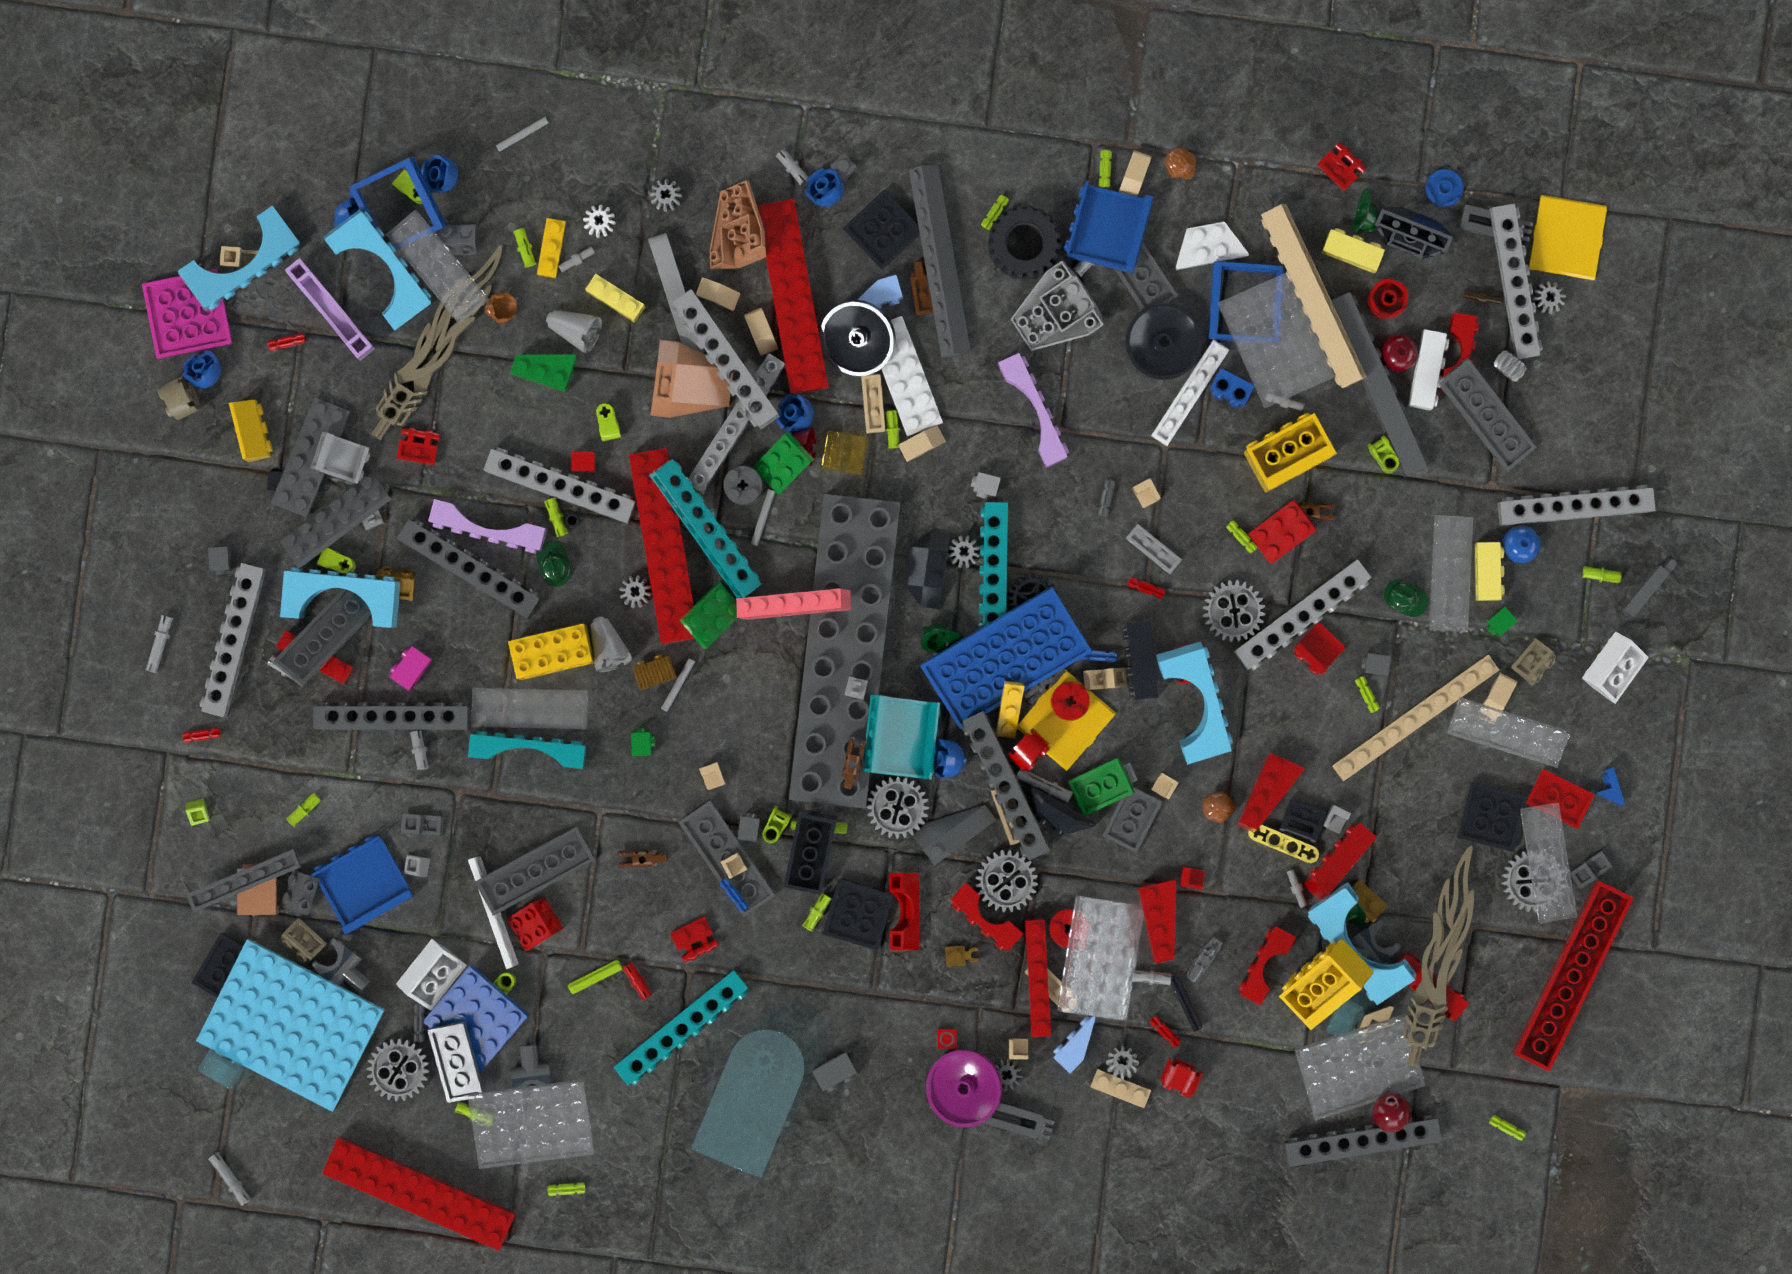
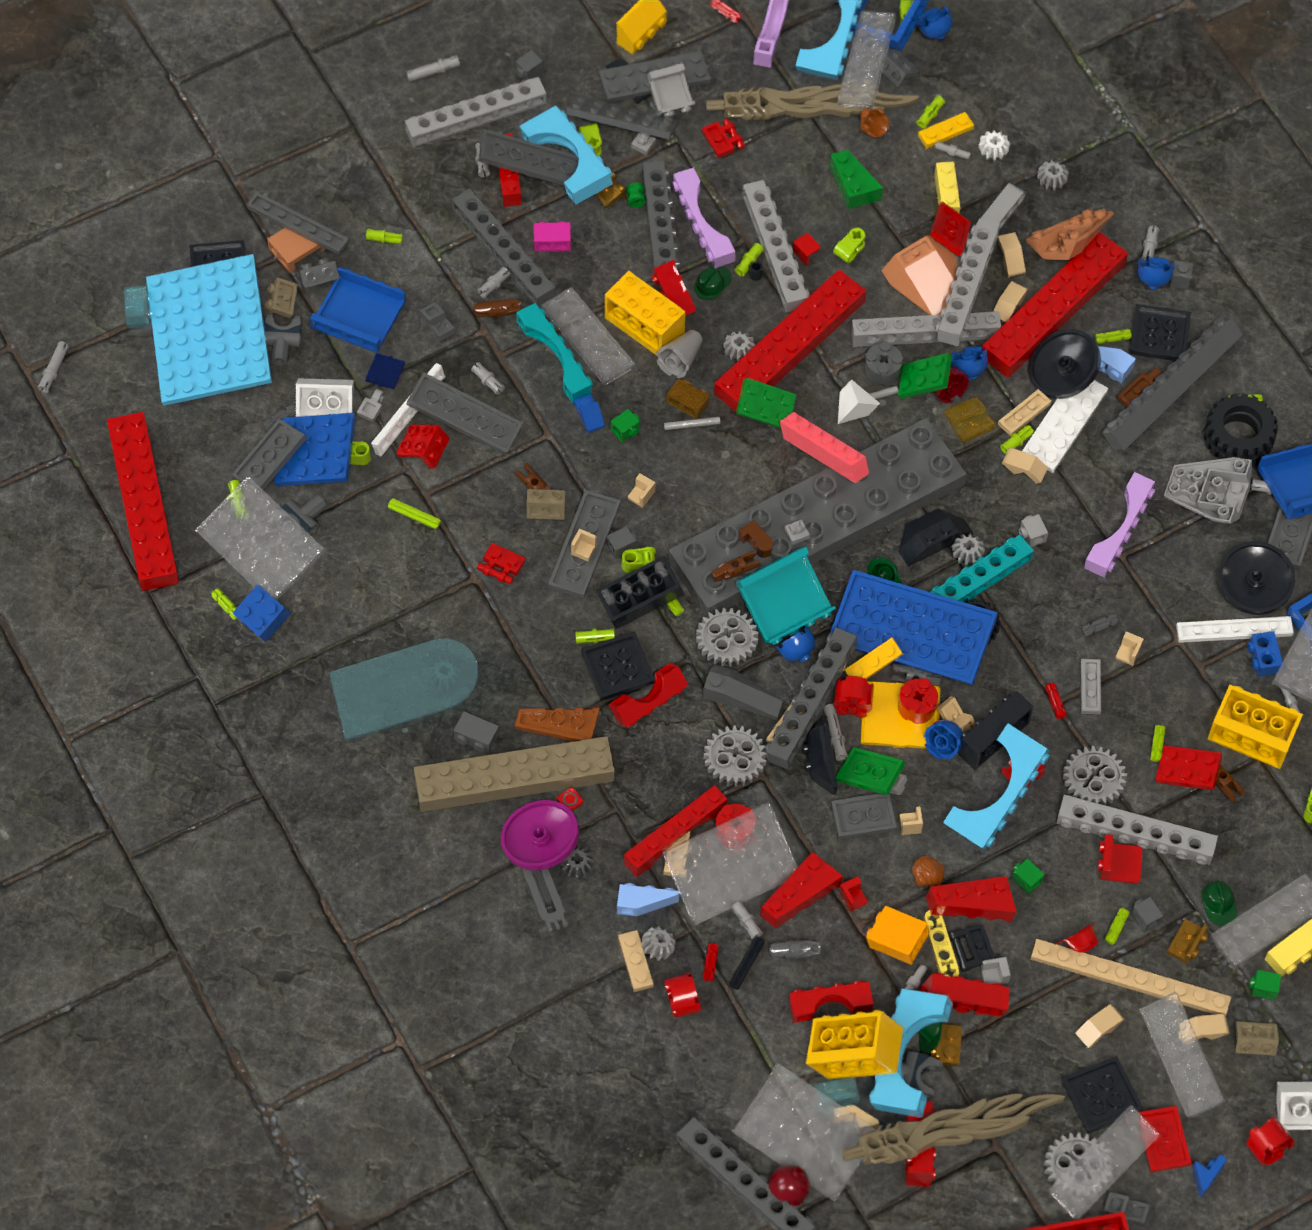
camera: 50 degrees right, 25 degrees down
(197, 812) = (324, 171): lime slope -> none
(203, 734) = (386, 137): red axle -> none
(384, 1060) = (231, 424): light grey gear -> none
(416, 866) = (402, 339): light grey slope -> none
(421, 565) = (635, 195): none -> green wheel
(437, 902) = (385, 371): none -> clear blue piece
(448, 766) = (496, 308): none -> reddish brown hinge
(467, 942) = (371, 407): none -> light grey plate
(510, 823) = (488, 378): none -> light grey pin
(521, 134) = (1010, 59): light grey bar -> none
(546, 611) = (672, 286): none -> red wedge
(575, 328) = (903, 180): light grey cone -> none
(601, 1169) = (261, 613): none -> blue brick
(605, 763) = (589, 413): none -> blue slope
(633, 1076) = (434, 595): teal brick -> none
(637, 981) = (435, 545): red pin -> none
(662, 332) = (950, 229): none -> red plate
(667, 864) = (546, 504): none -> dark tan bracket
(695, 525) = (852, 297): teal brick -> none
(733, 894) = (560, 563): blue axle -> none
(761, 539) = (854, 403): none -> white slope
(844, 725) = (757, 538): none -> reddish brown leg
(856, 271) = (1113, 336): none -> lime axle
(876, 996) = (559, 723): none -> dark orange wing
(894, 1069) = (514, 774): none -> dark tan brick
(957, 955) = (645, 763): pearl gold plate -> none
(1005, 933) = (695, 739): red arch -> none
(1018, 1048) = (604, 857): tan panel -> none
(1098, 655) = (971, 702): blue axle -> none
(1118, 706) = (943, 739): none -> blue cylinder
(1252, 872) = (897, 934): none -> light orange brick
(1278, 732) = (1027, 876): none -> green brick
(1359, 734) = (1083, 940): none -> red piece
(1420, 650) = (1187, 940): none -> pearl gold bracket
(1438, 774) = (1099, 1024): none -> tan slope
(1624, 724) = (1269, 1141): none -> red brick

